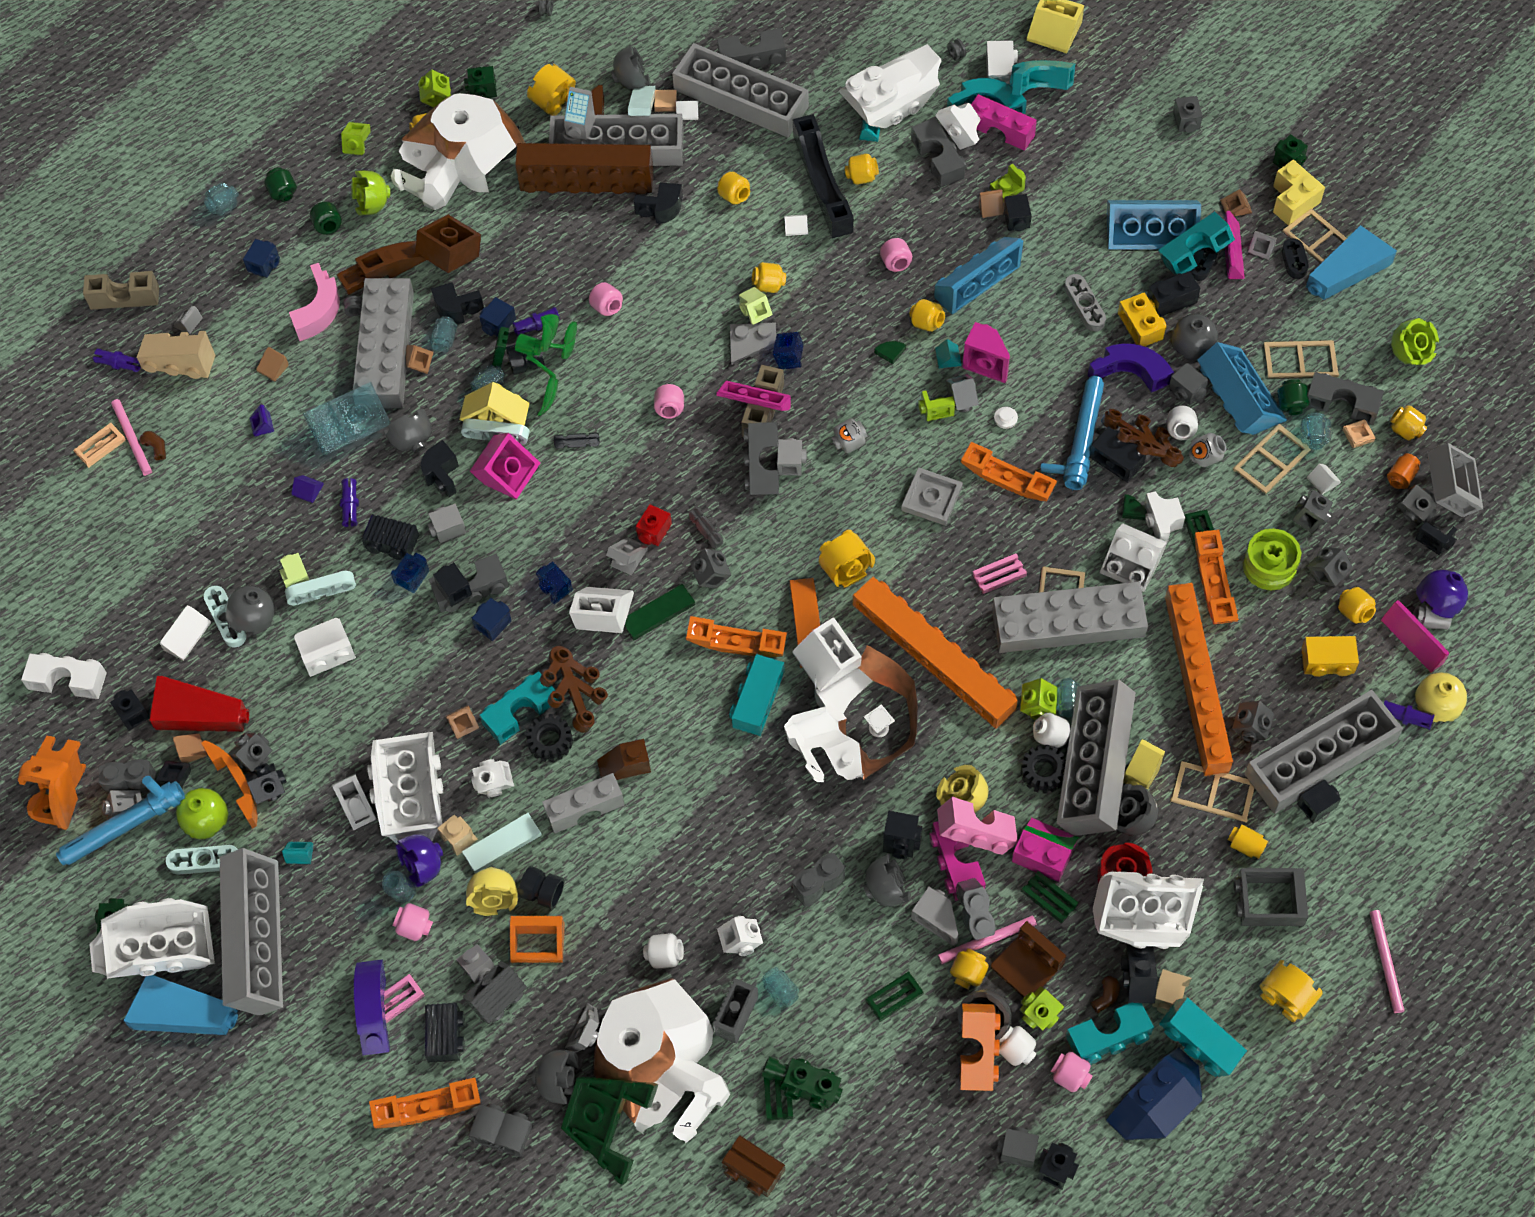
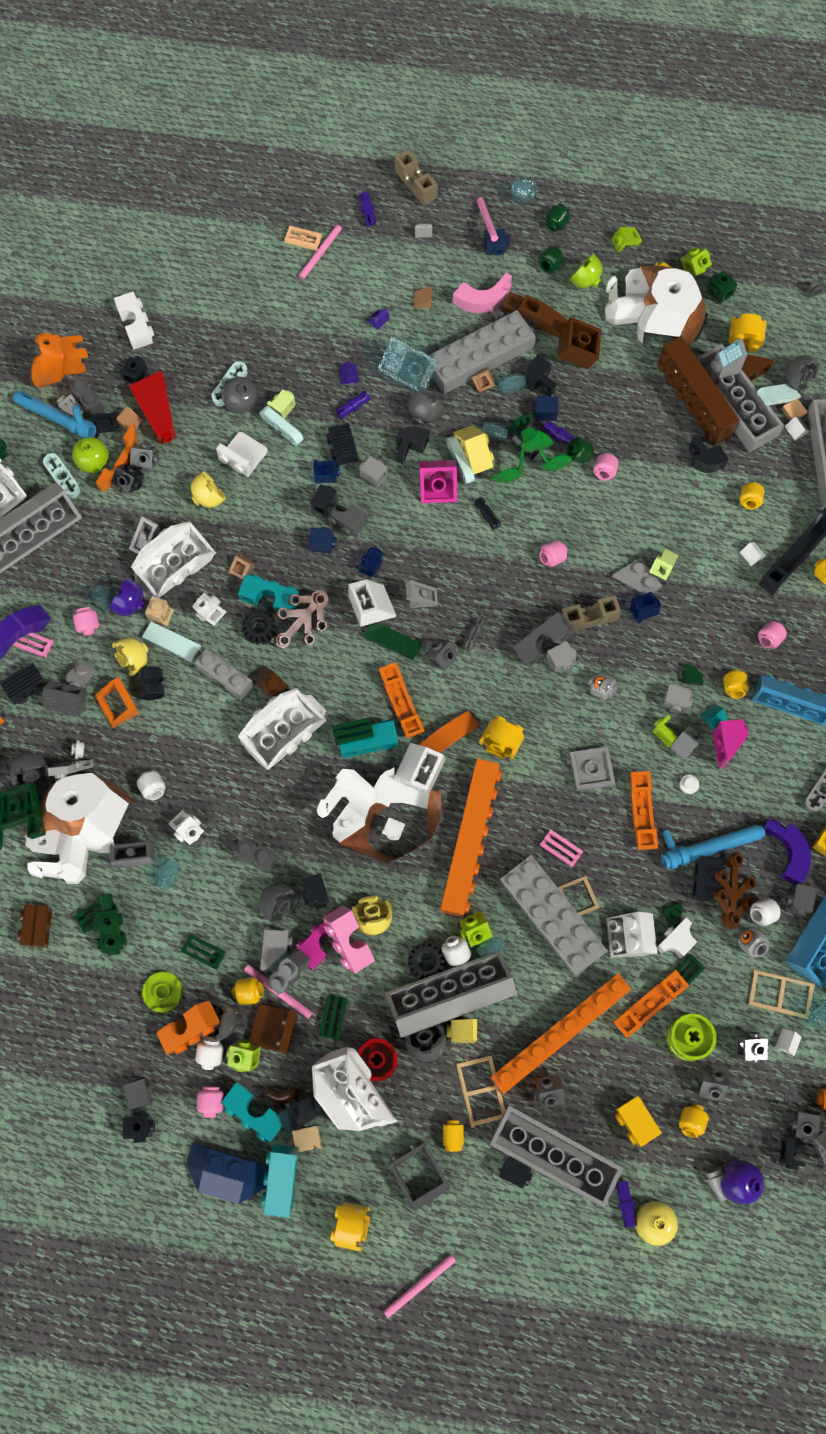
camera: 55 degrees right, 10 degrees up
(158, 444) = (325, 268): reddish brown arm -> none
(177, 354) = (391, 239): tan wedge -> none
(184, 633) = (204, 368): white slope -> none
(230, 249) = (487, 219): none -> bright pink bar
(298, 852) = (97, 525): teal slope -> none
(345, 707) = (206, 492): none -> light yellow cylinder
(566, 1011) = (78, 749): none -> white plate
(570, 310) = (580, 450): none -> dark green head
(653, 525) = (452, 599): red brick -> none
(691, 774) = (281, 726): none -> white slope
(749, 681) = (352, 731): none -> dark green tile
(755, 396) = (588, 606): dark pink slope -> none
(768, 277) = (694, 560): yellow head -> none
(908, 376) = (677, 699): none -> light grey brick
(919, 1071) = (167, 997): none -> lime tile
(1044, 849) = (367, 994): dark pink slope -> none
(1415, 636) = (694, 1178): dark pink slope -> none

